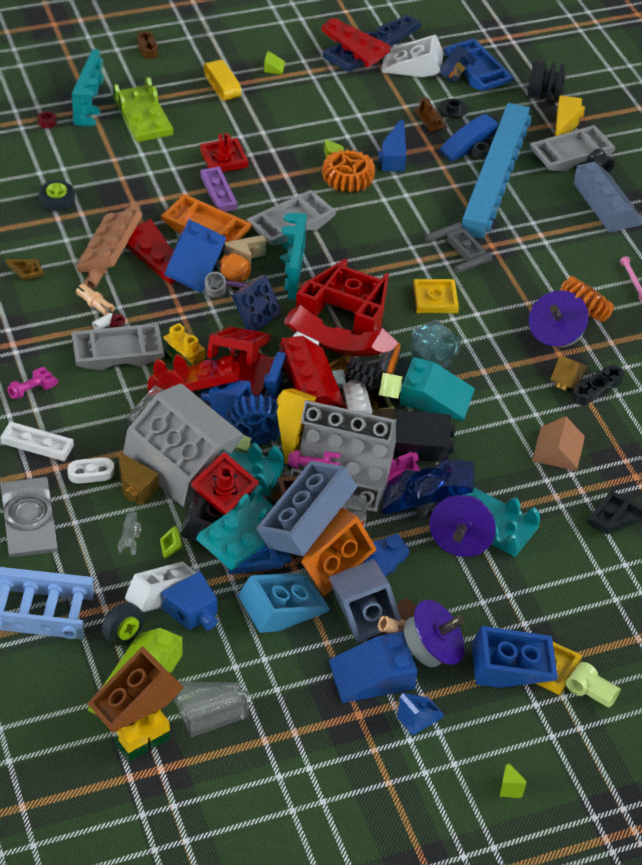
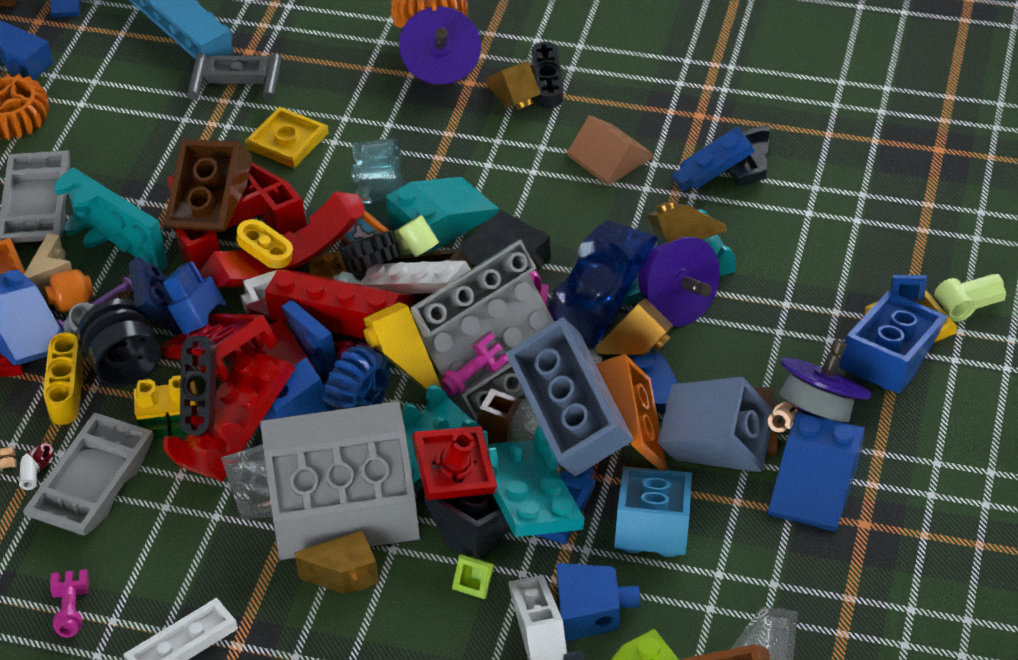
camera: 50 degrees left, 0 degrees up
(91, 470) = (280, 607): white plate -> none
(130, 530) = (421, 609): clear plate -> none
(174, 299) = (63, 378): none -> yellow beam
(203, 331) = (186, 395): none -> black beam
(208, 305) = (118, 342): none -> black wheel
(265, 315) = (192, 297): none -> blue piece
(327, 325) = (267, 245): none -> yellow plate
(343, 274) = (207, 184): none -> reddish brown slope
(408, 525) = (637, 332): none -> pearl gold slope
(417, 712) = (908, 467): blue slope -> none
(509, 504) = (680, 220): none -> pearl gold slope
(565, 647) = (909, 286): none -> blue slope
(592, 497) = (713, 160): none -> blue hinge

